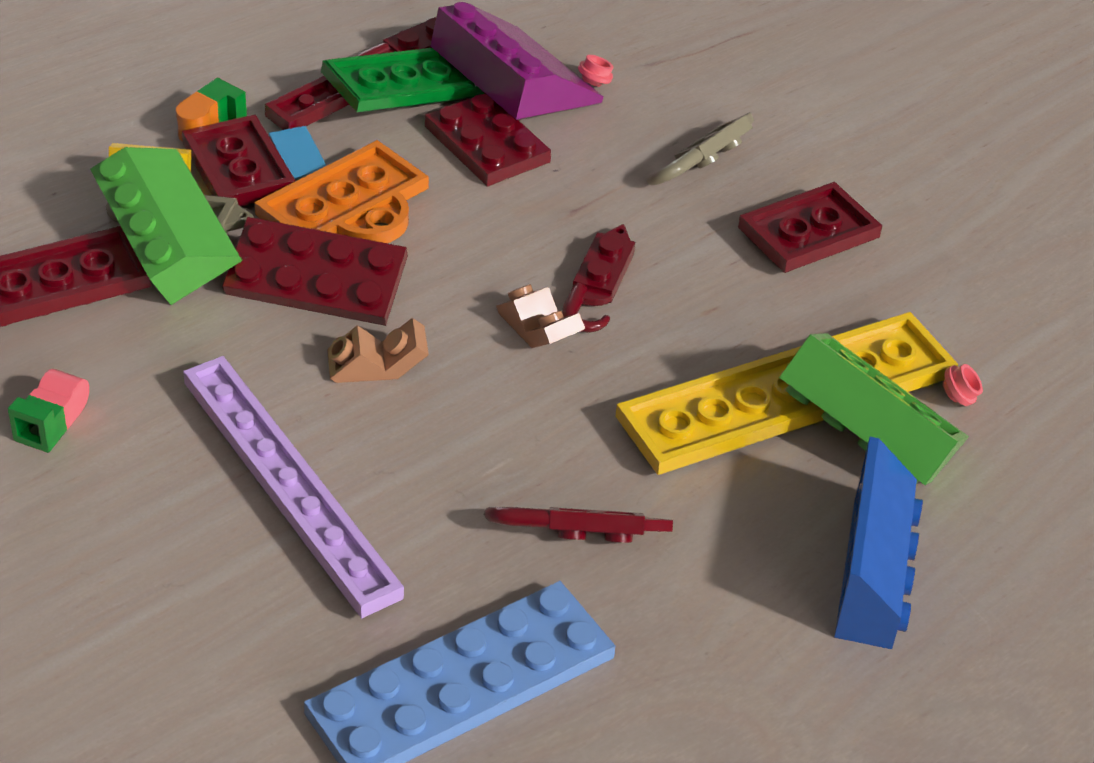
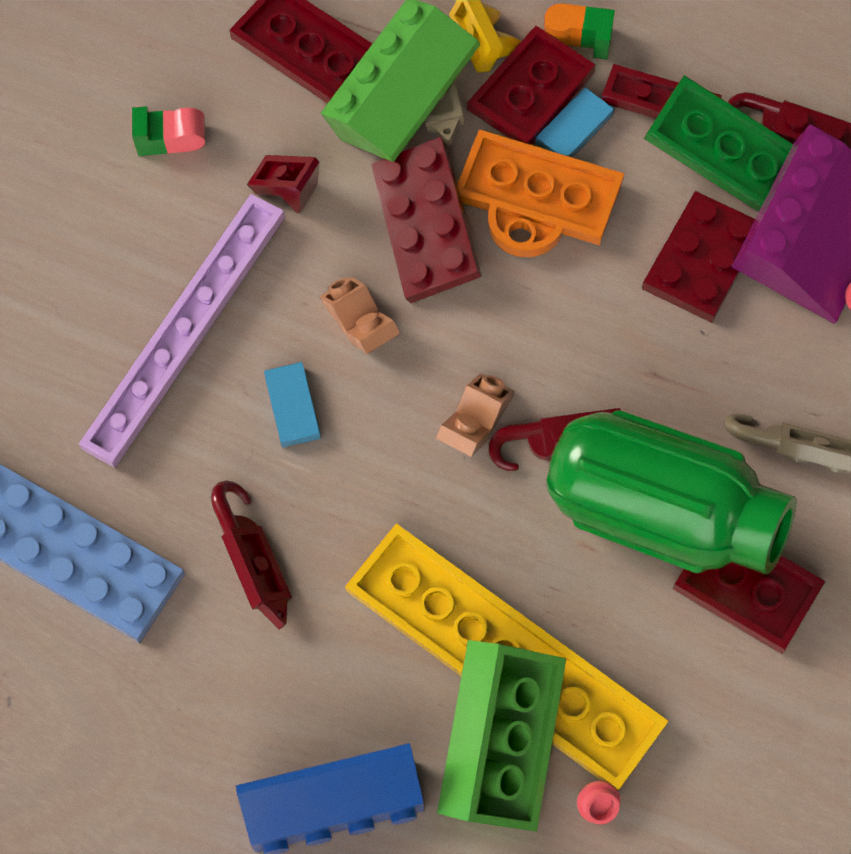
camera: 70 degrees right, 25 degrees up
(197, 329) = (288, 177): none -> dark red slope
(433, 438) = (292, 404): none -> dark azure tile
(717, 205) = (667, 494): none -> green piece

